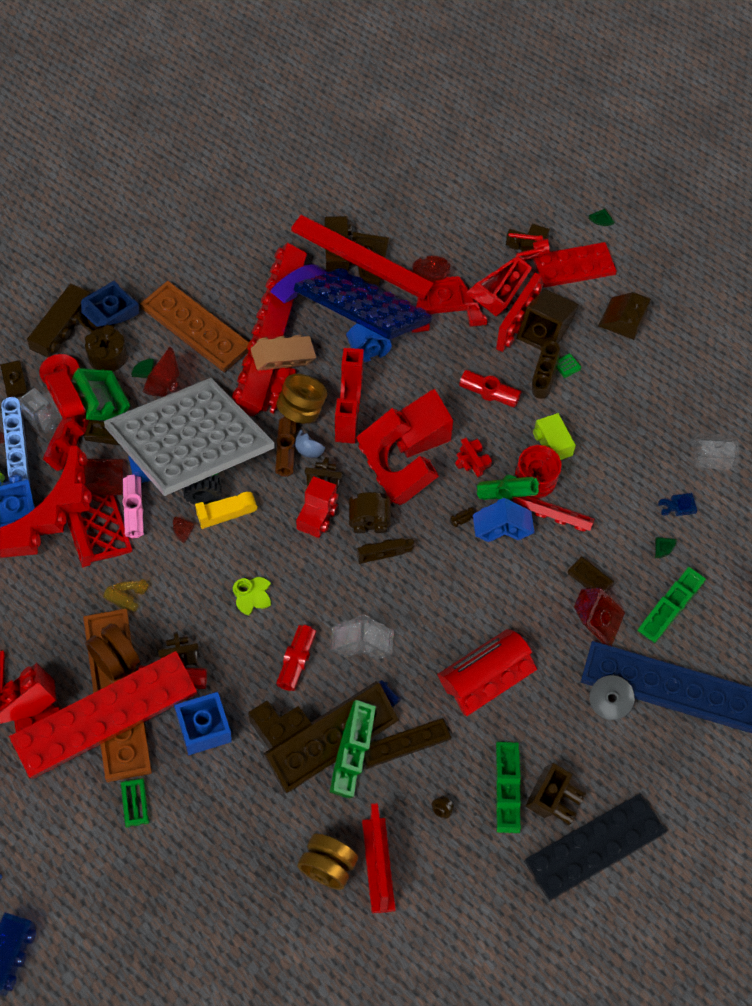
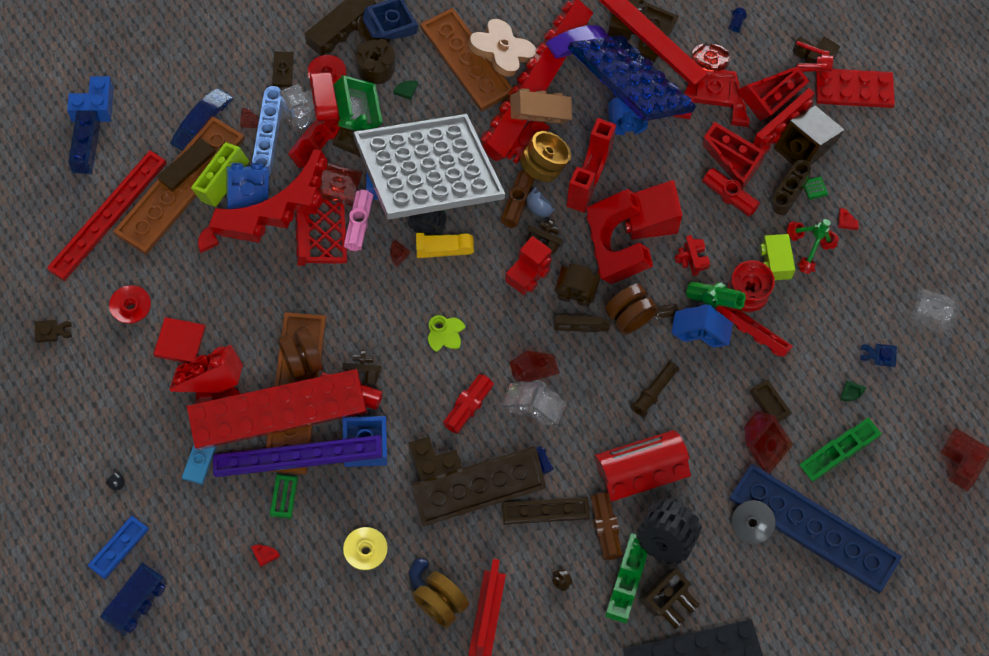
camera: 15 degrees right, 5 degrees up
(35, 794) = (198, 465): none -> dark azure plate
(116, 595) = (320, 301): clear yellow plant -> none
(131, 867) = (264, 554): none -> red tile
(137, 757) = (297, 456): none -> dark purple tile
(163, 376) = (421, 102): clear red slope -> none
(227, 306) = (501, 47): none -> plant
(232, 821) = (363, 538): none -> light yellow dish
(292, 841) = (418, 566): none -> dark blue arm
(350, 604) = (533, 366): none -> clear red slope
(352, 748) = (494, 503): green slope -> none
(430, 522) = (631, 309): none -> reddish brown wheel
(445, 228) = (739, 16): none -> clear blue pin
(470, 741) = (606, 526): none -> reddish brown piece
(473, 602) = (650, 396): none -> dark brown pin
(480, 351) = (733, 153): none -> red wedge
(535, 728) = (669, 531): none -> black wheel
(592, 408) = (823, 236): none -> plant
(601, 217) = (897, 46): dark green tile -> none
(607, 388) = (846, 220): none -> red tile
(625, 314) = (889, 151): dark brown slope -> none

